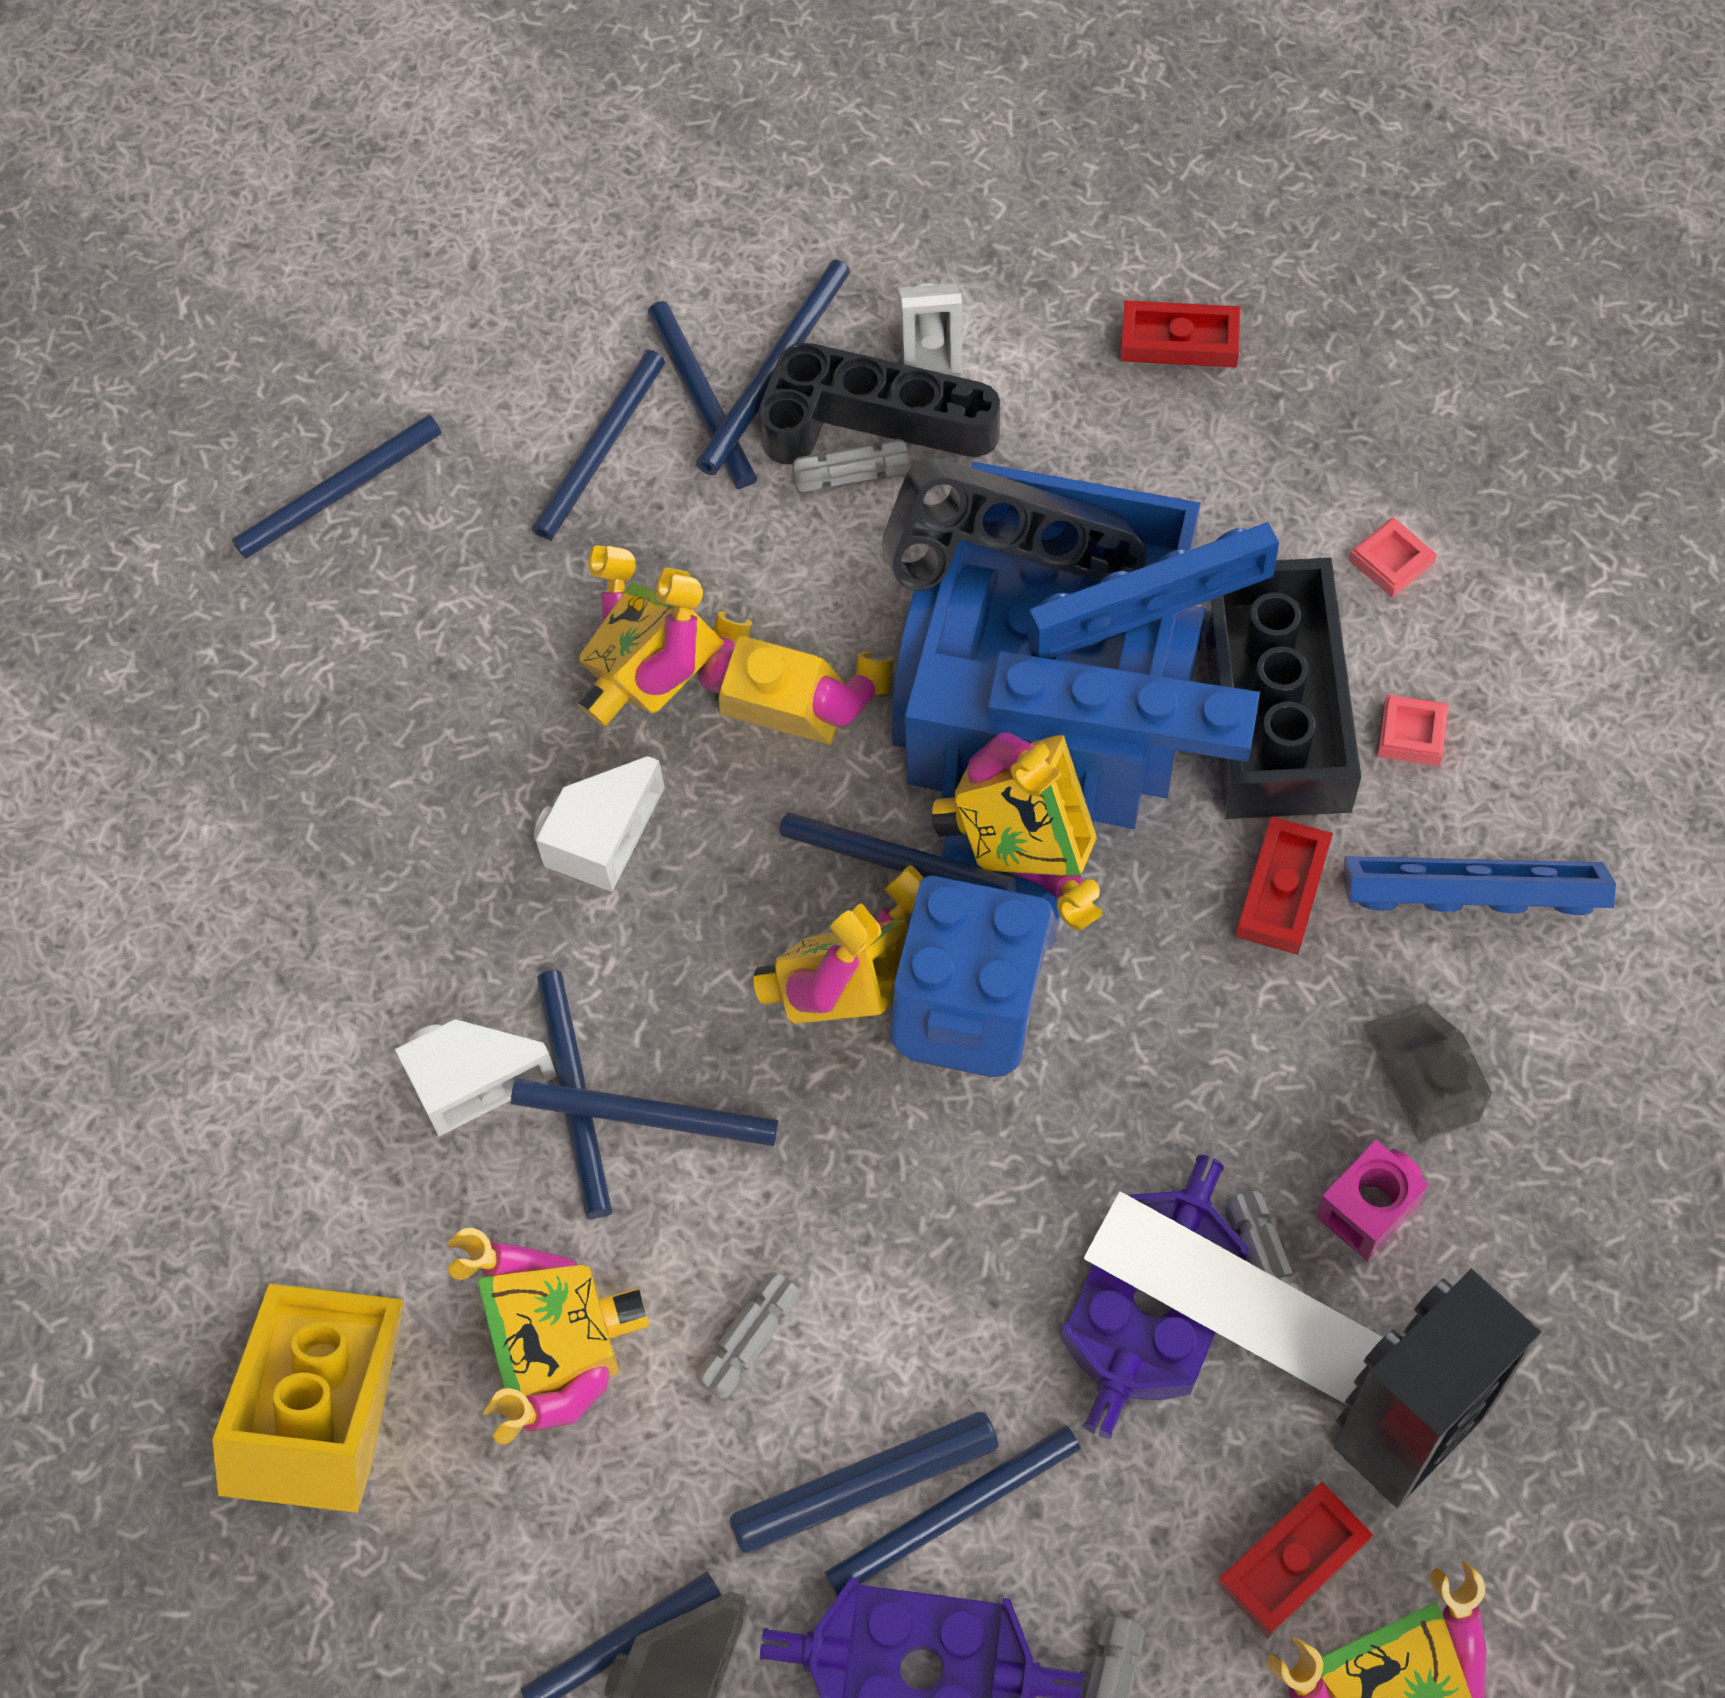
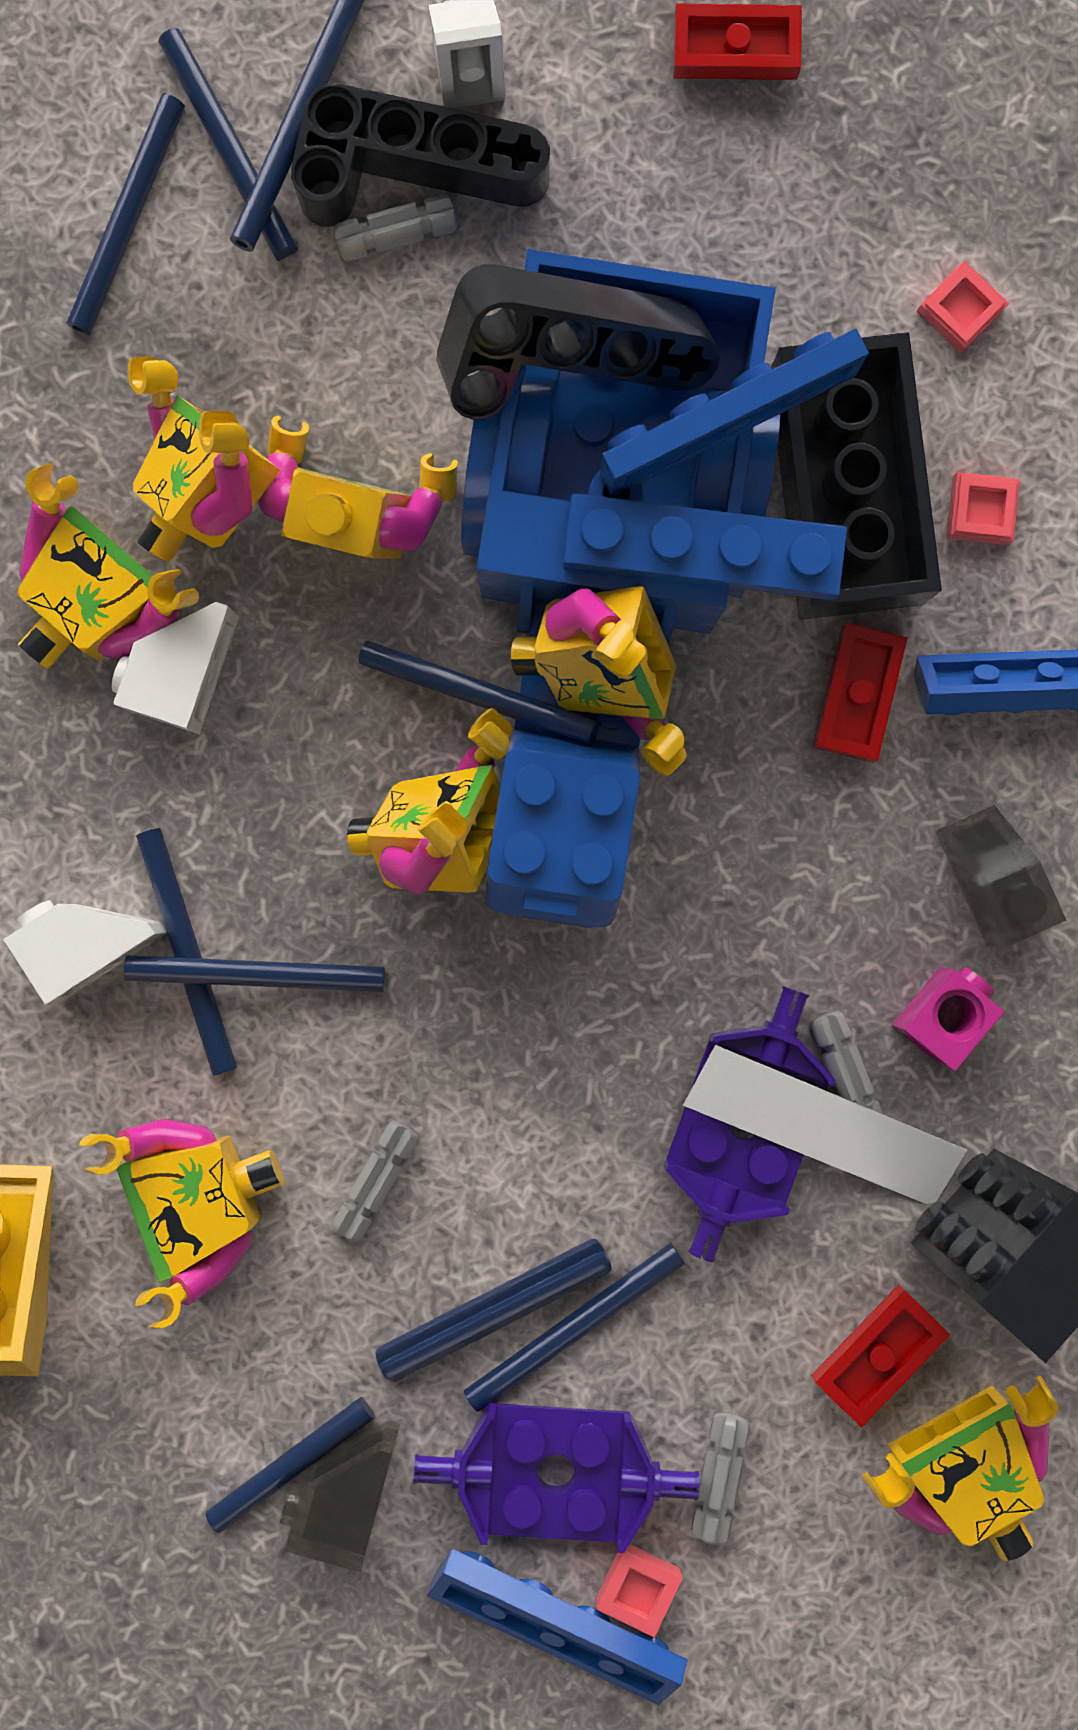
camera: 10 degrees left, 25 degrees up
(523, 739) = (86, 582): none -> torso

